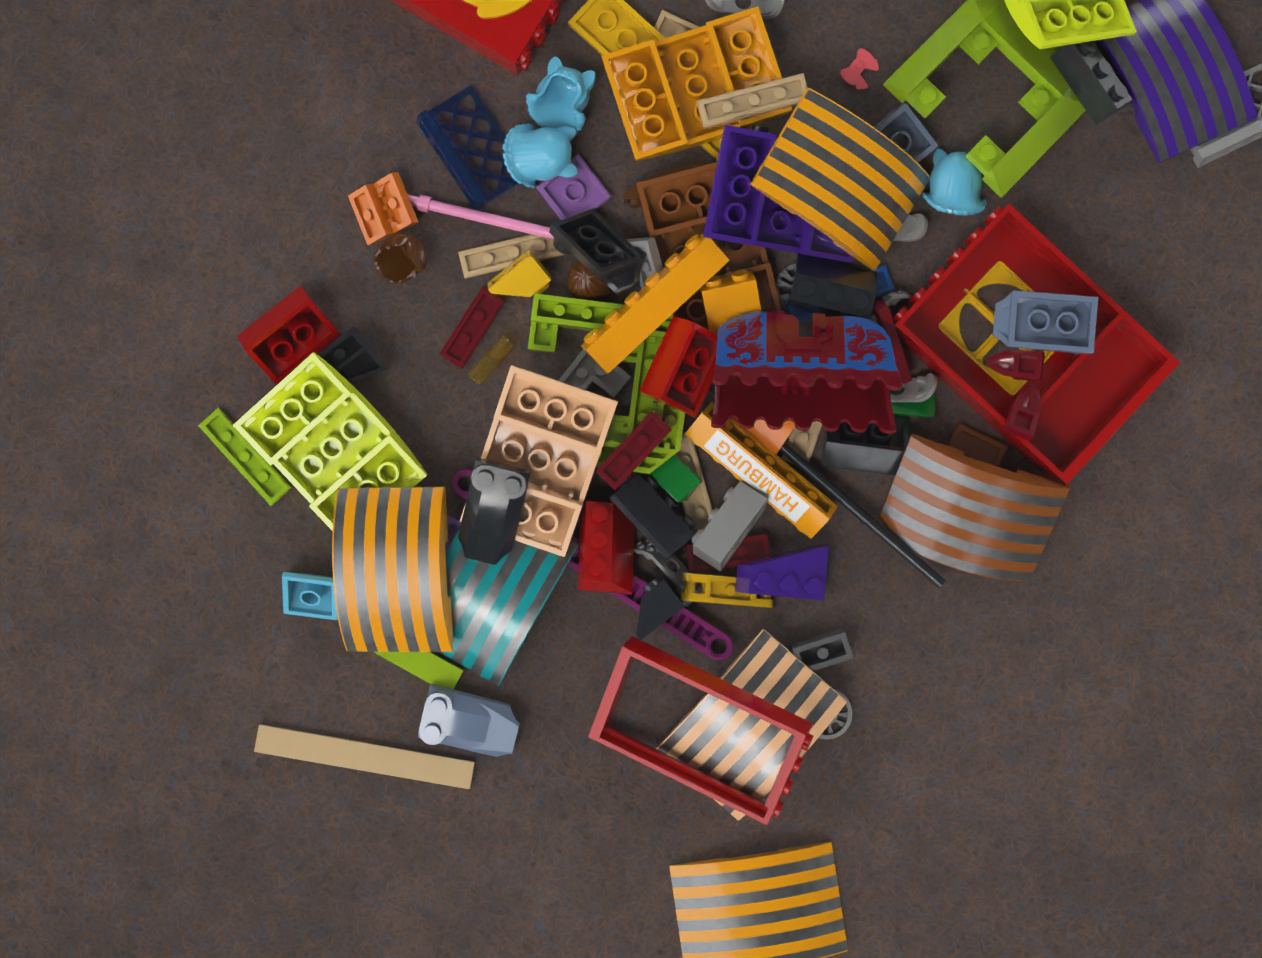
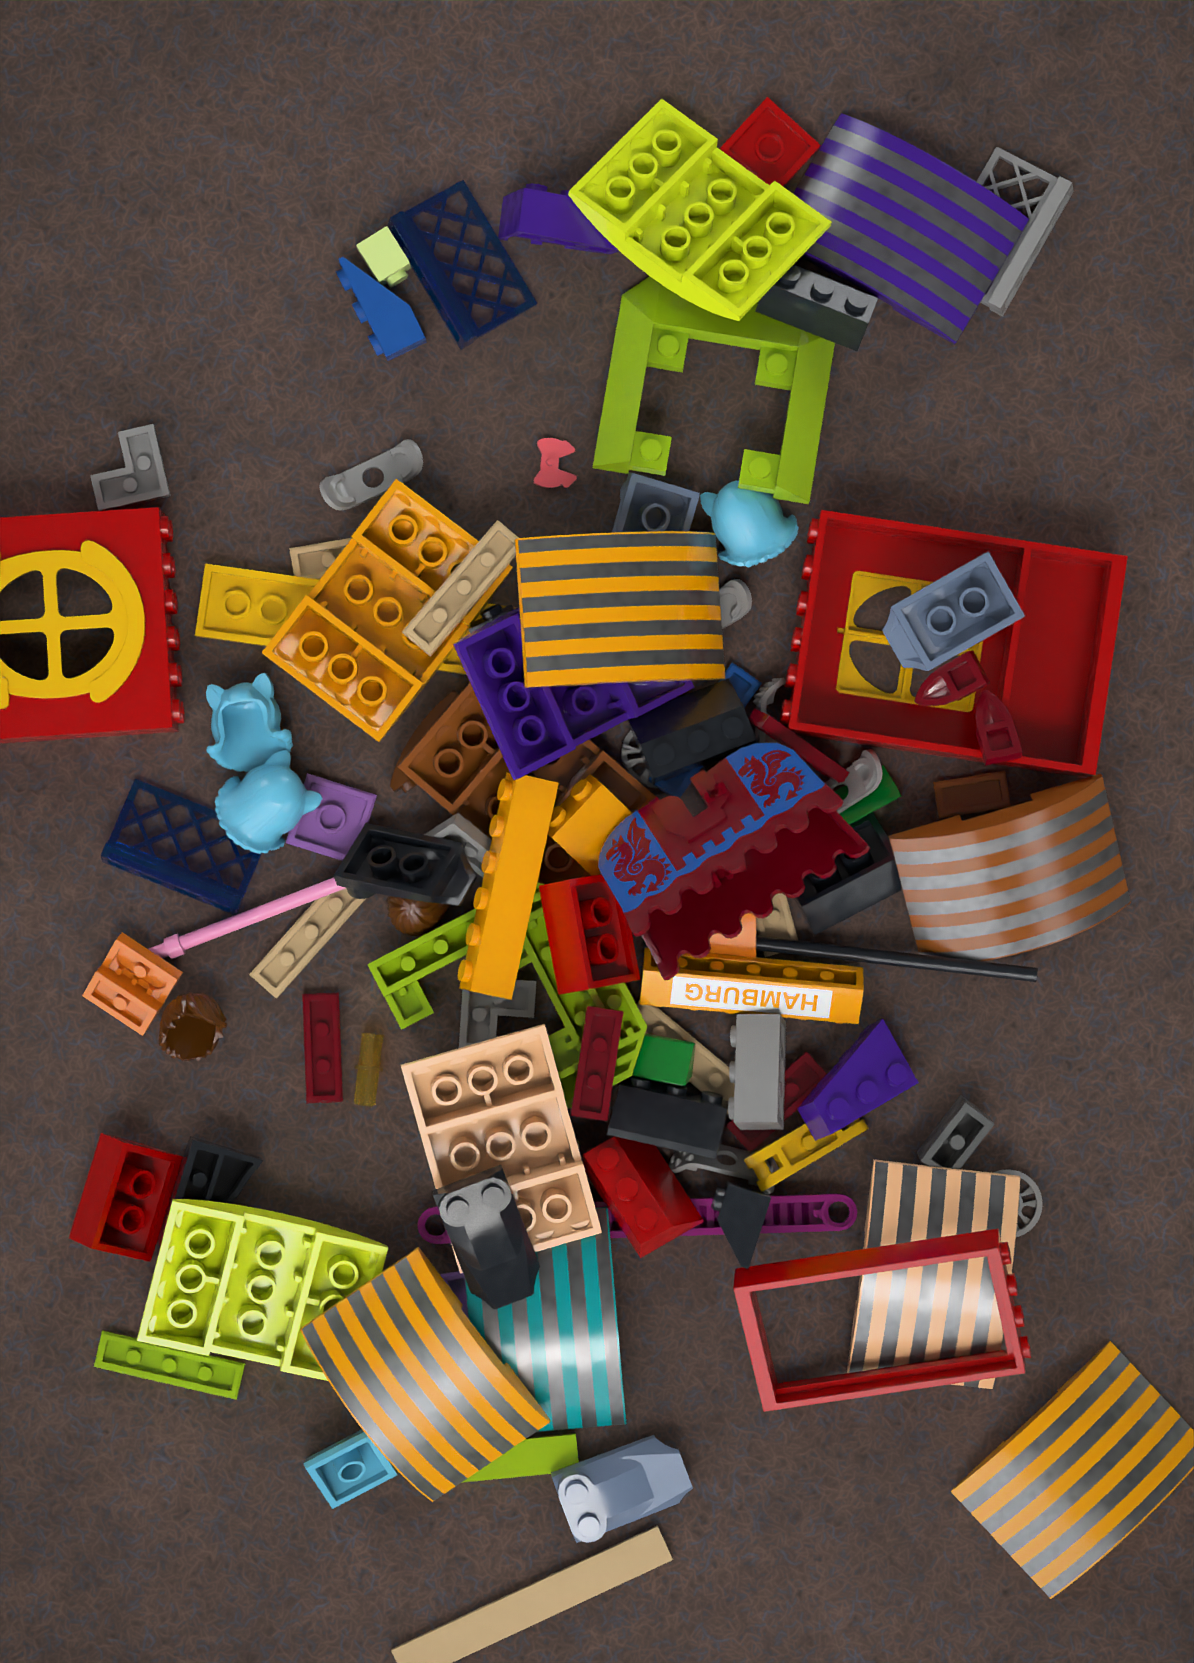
camera: 40 degrees left, 0 degrees up
(521, 277) = (340, 955): yellow slope -> none

